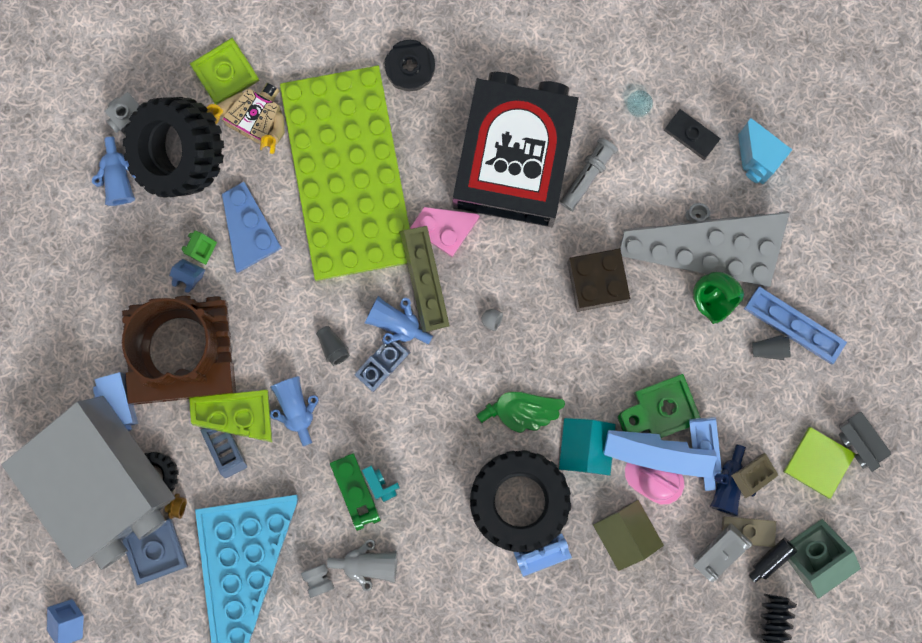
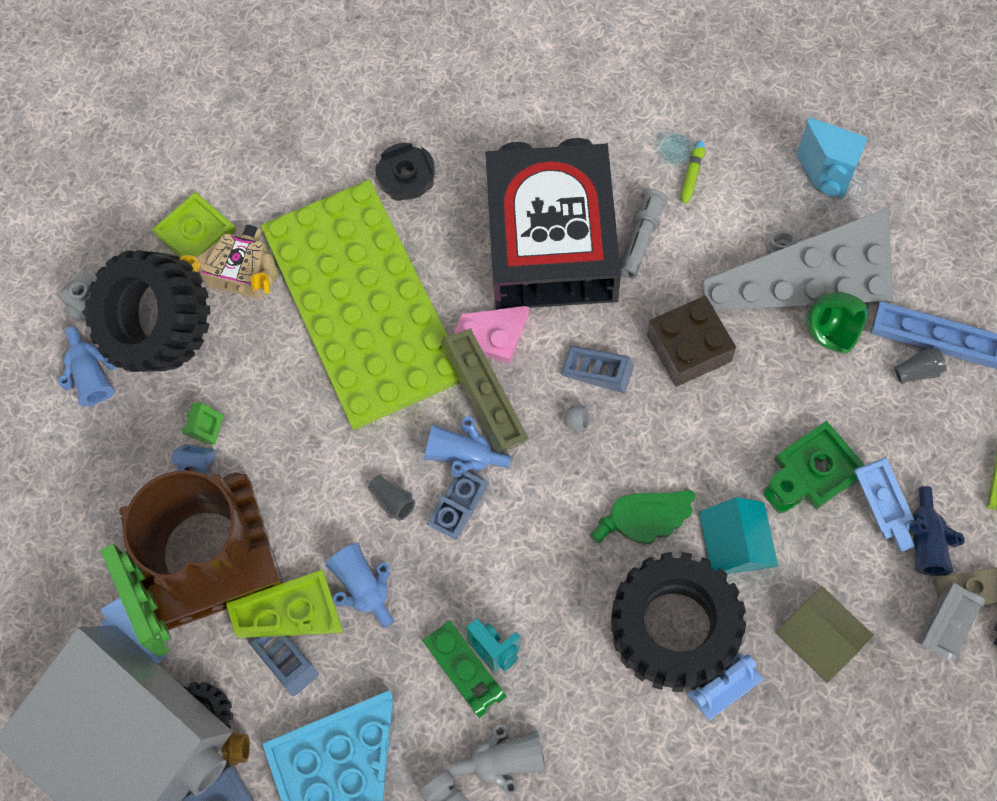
camera: 10 degrees left, 15 degrees down
(123, 387) = (137, 601): none -> bright green plate
(247, 227) = (258, 390): medium blue wing -> none
(537, 293) = (606, 381): none -> sand blue slope
(647, 127) = (692, 171): none -> lime piece
(655, 484) = (833, 555): bright pink piece -> none
(658, 454) = (832, 517): light blue slope -> none
(692, 134) = (745, 165): black plate -> none
(754, 475) = (957, 515): dark tan plate -> none

